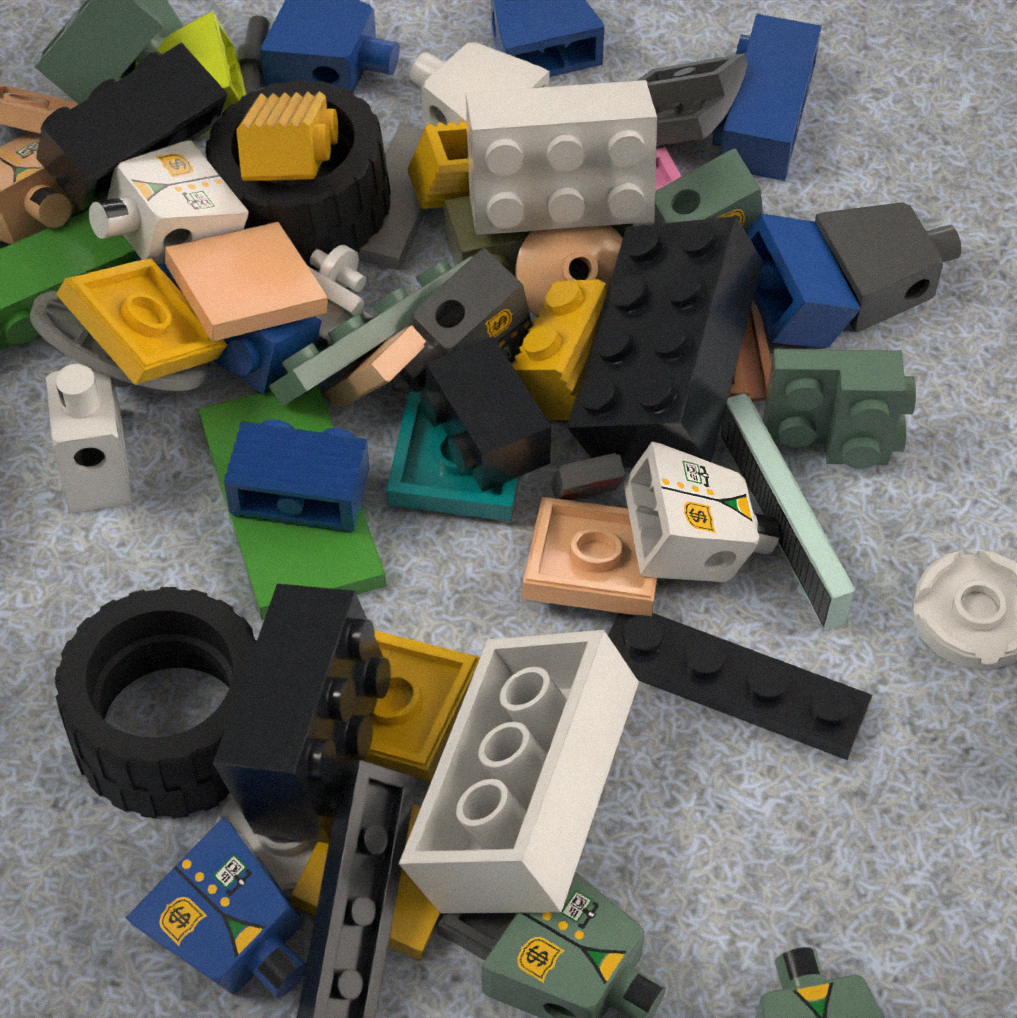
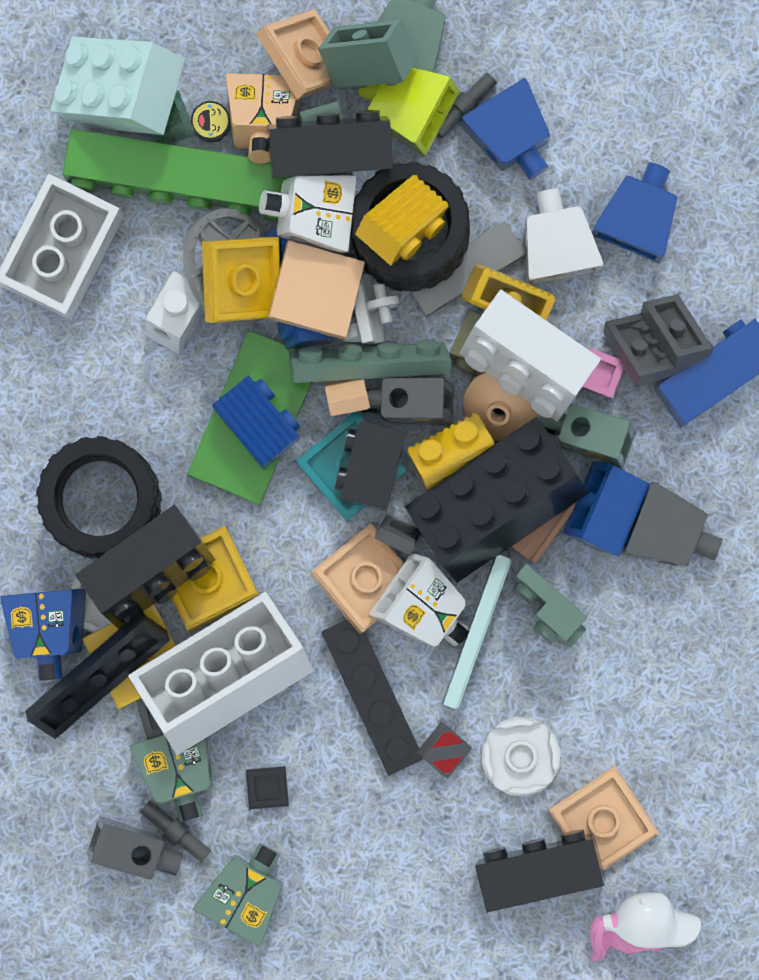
camera: 40 degrees right, 30 degrees up
(713, 893) = (267, 787): none -> black tile
(885, 664) = (444, 750): none -> dark grey tile

